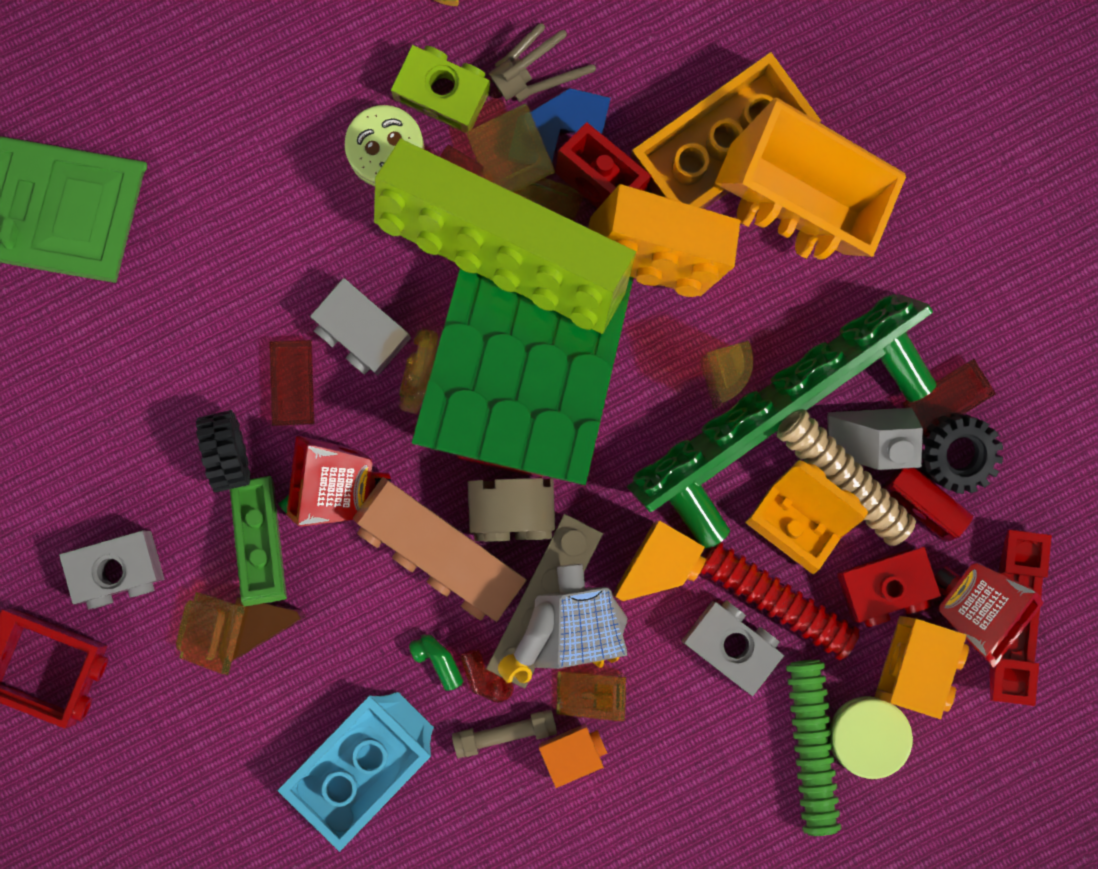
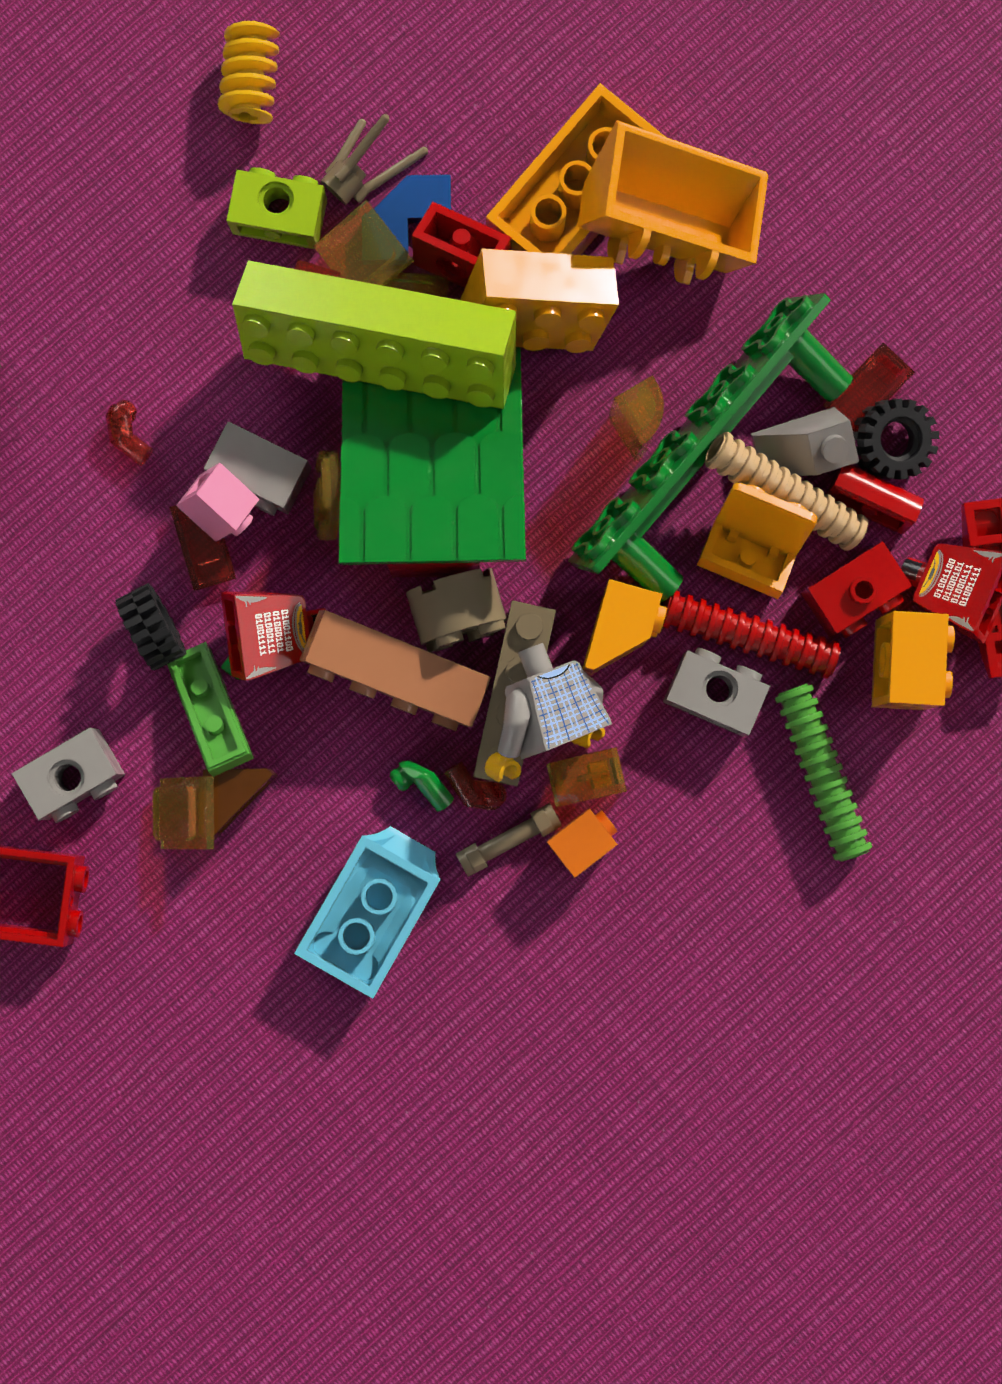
camera: 10 degrees left, 0 degrees up
(242, 261) = (120, 432): none -> clear red arm
(315, 352) = (219, 503): none -> bright pink brick
(375, 135) = (220, 272): yellowish green head -> none
(870, 737) = (878, 747): yellowish green head -> none

